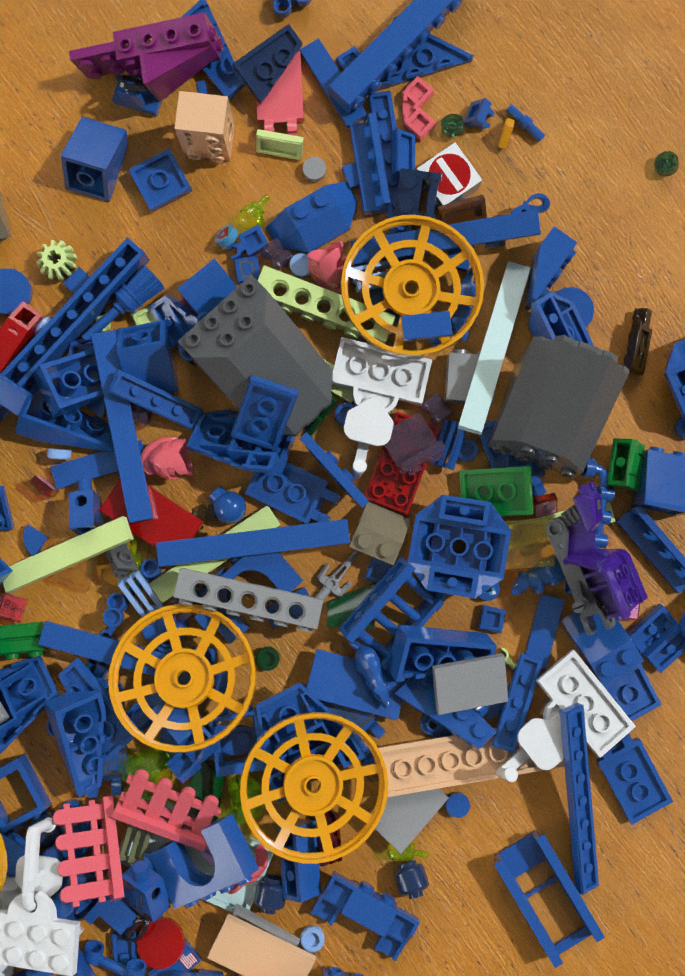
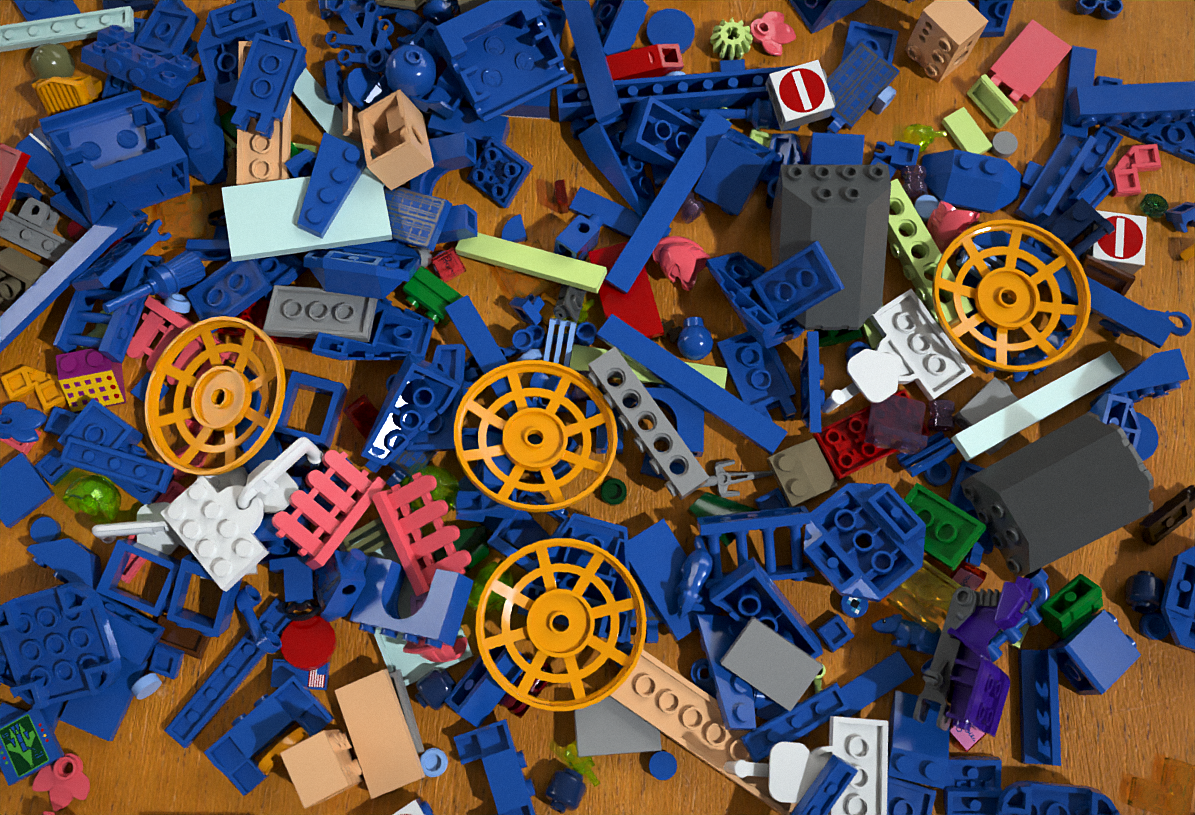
camera: 45 degrees right, 10 degrees down
(9, 423) = (578, 126): none -> blue hinge
(51, 765) = (362, 415): none -> clear red slope
(59, 453) = (596, 182): light blue tile -> none
(83, 224) = (772, 32): none -> coral plate
(95, 587) = (528, 308): none -> blue tile
(129, 619) = (532, 354): none -> light blue tile
(144, 266) = (800, 95): none -> piece
(154, 399) = (713, 204): blue tile -> none
(174, 221) = (857, 85): none -> tile
(204, 210) = (883, 100): none -> light blue tile
(226, 236) = (884, 133): dark azure tile -> none
(268, 61) = (1039, 31): dark blue wing -> none
(282, 183) = (966, 132): none -> yellowish green tile
(426, 326) = (996, 334): blue tile -> none
(663, 411) = (1144, 592): none -> dark blue head

